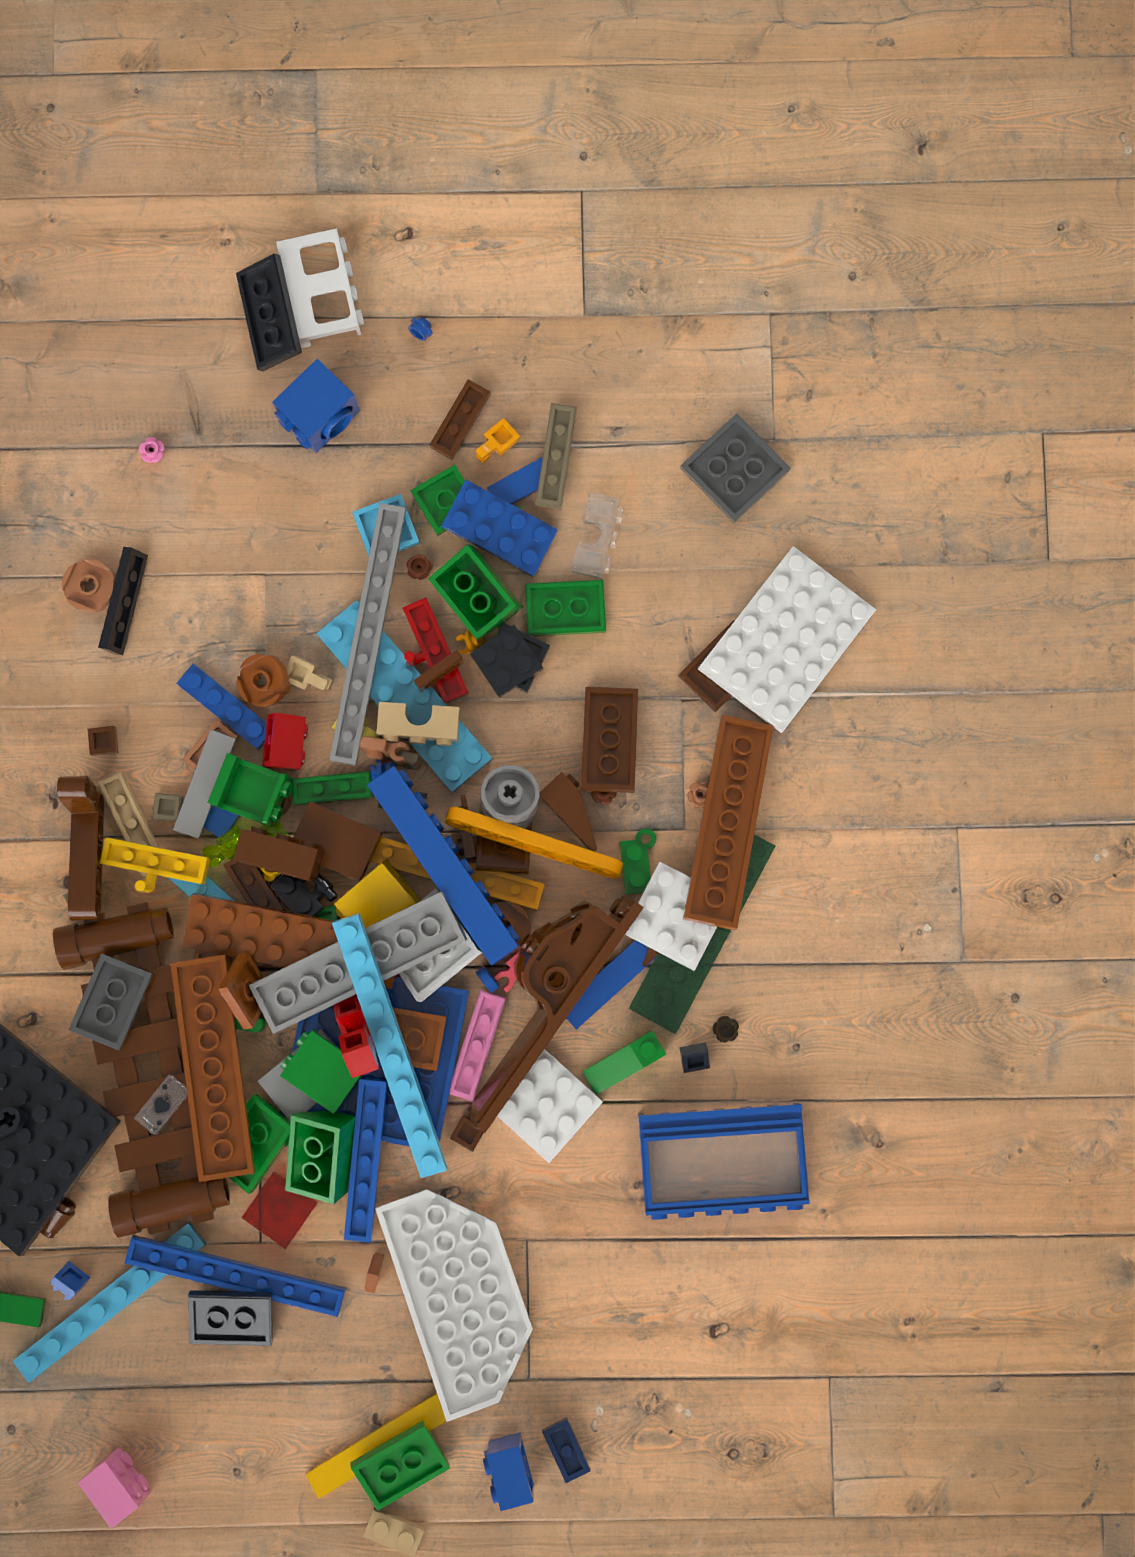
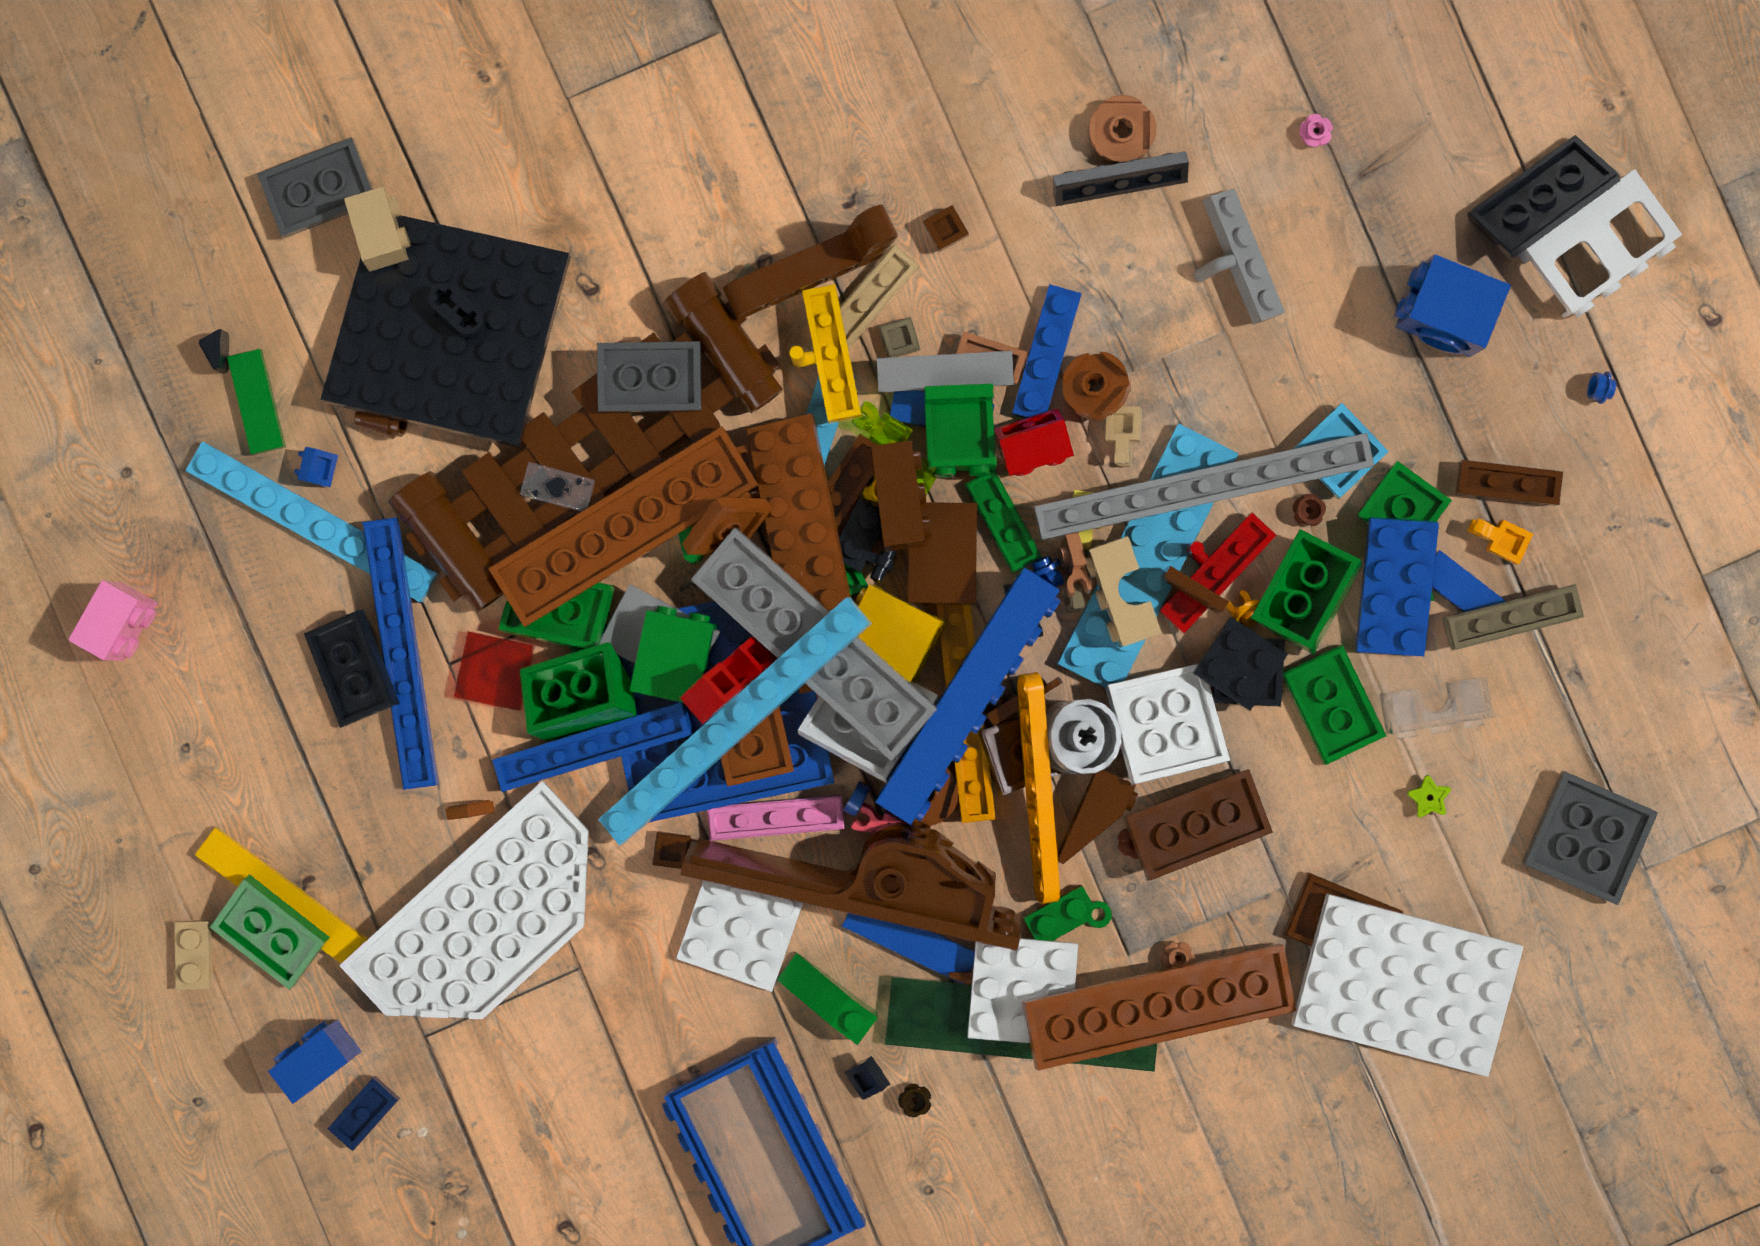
camera: 65 degrees right, 5 degrees up
(217, 539) = (1241, 256): none -> light grey plate
(528, 731) = (1167, 724): none -> white plate
(660, 560) = (1420, 795): none -> lime plate

